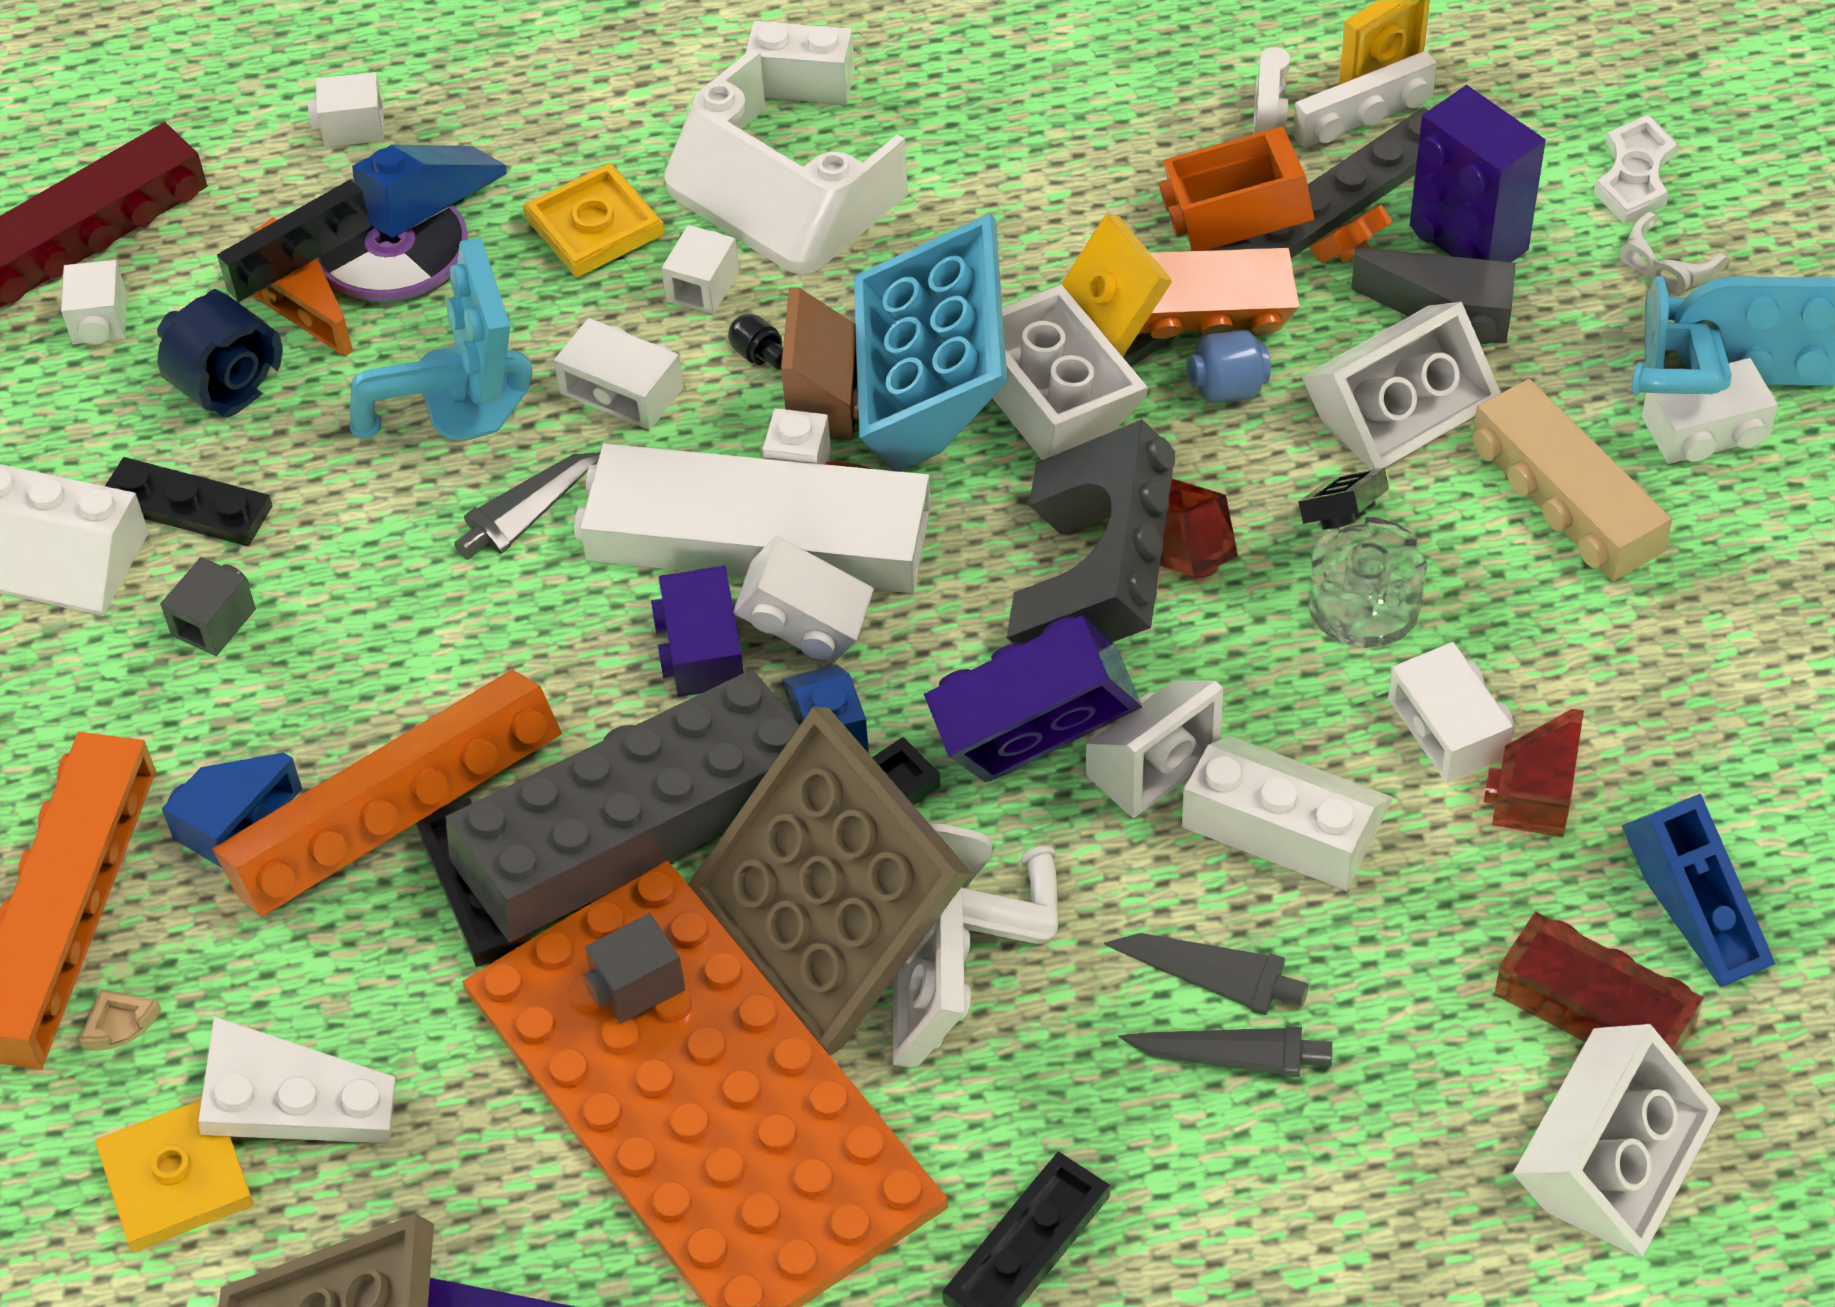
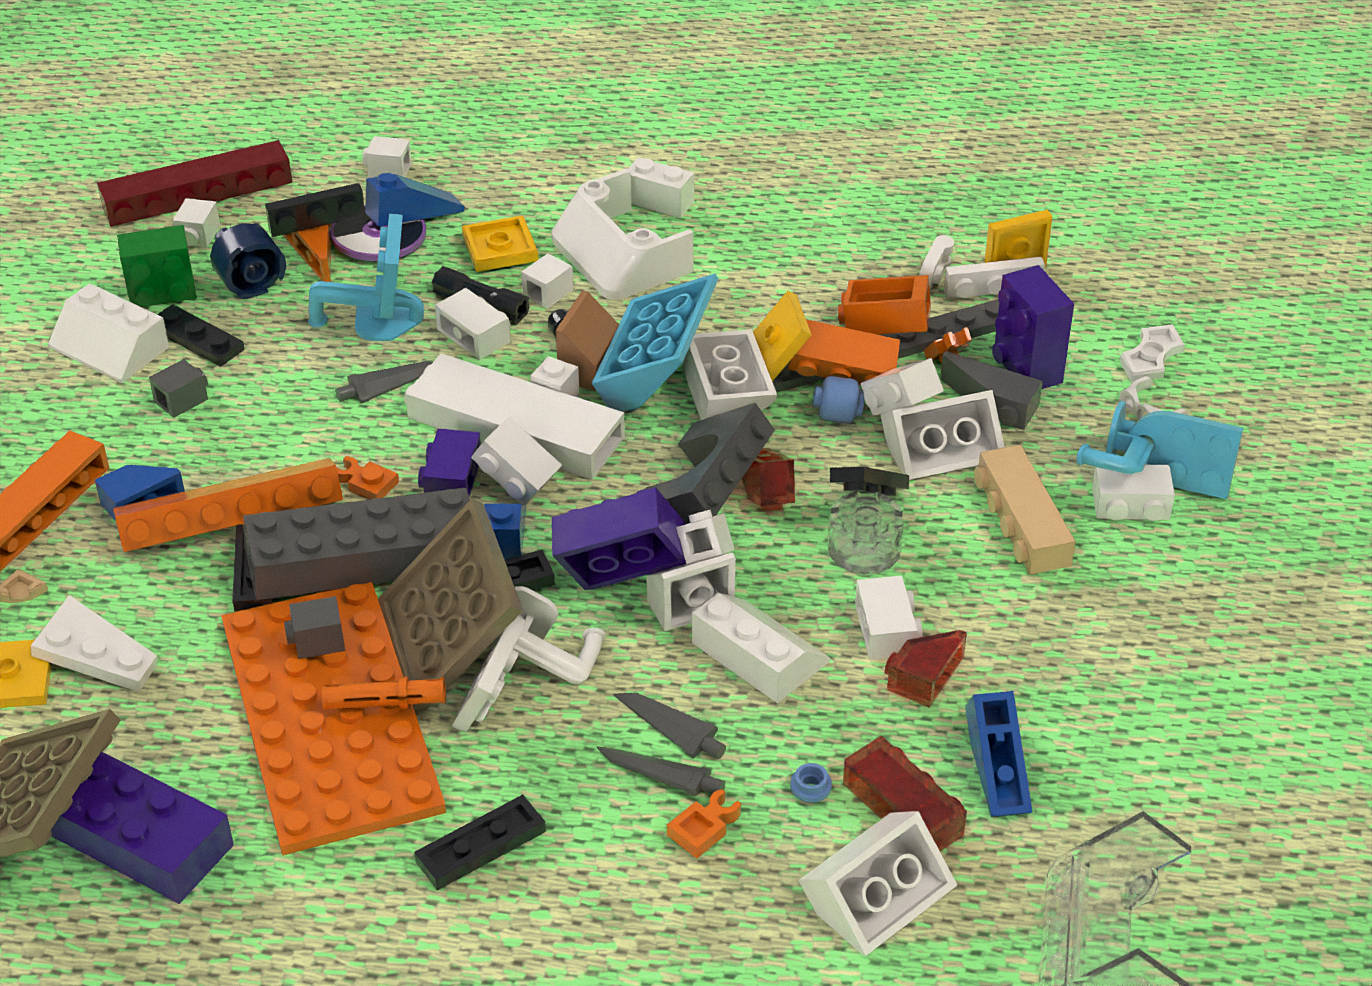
camera: 15 degrees right, 10 degrees down
(78, 401) = (157, 266): none -> green brick
(565, 311) = (449, 282): none -> black axle
(580, 685) = (367, 481): none -> orange plate
(798, 1045) = (384, 693): none -> orange pin
(1155, 661) = (705, 537): none -> white brick
(1327, 329) = (901, 387): none -> white brick
(1332, 1125) = (702, 827): none -> orange plate
(1457, 994) = (812, 774): none -> medium blue plate

